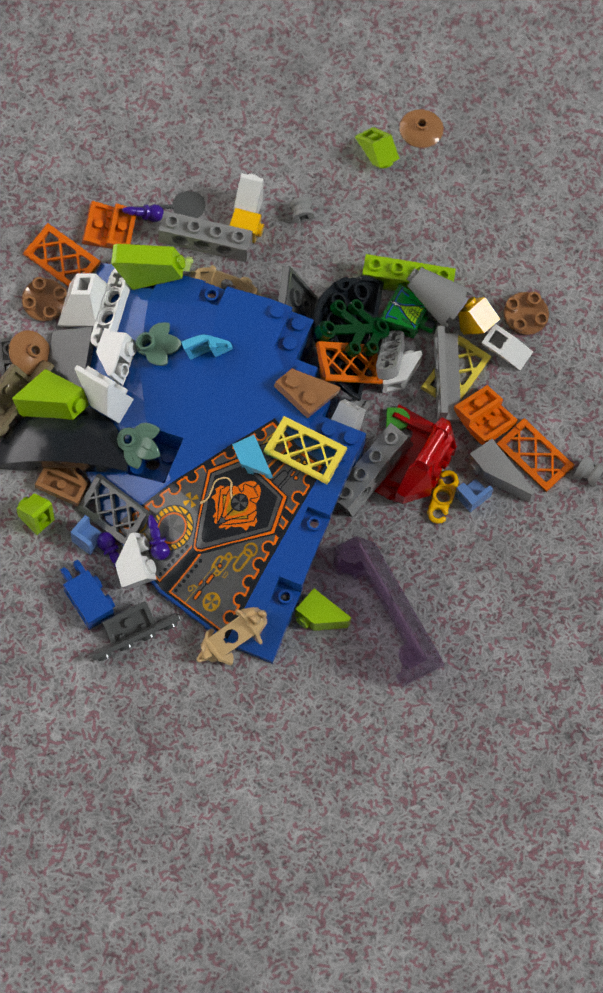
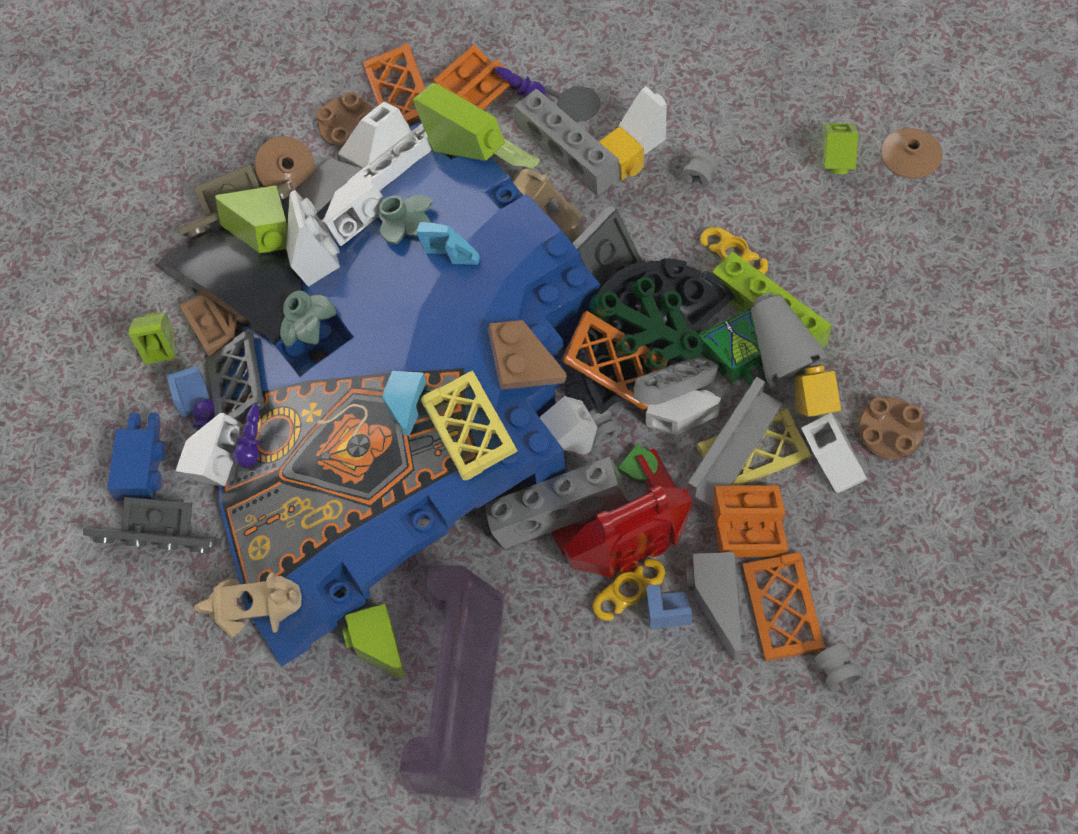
camera: 45 degrees right, 5 degrees down
(350, 247) = (727, 241): none -> yellow piece

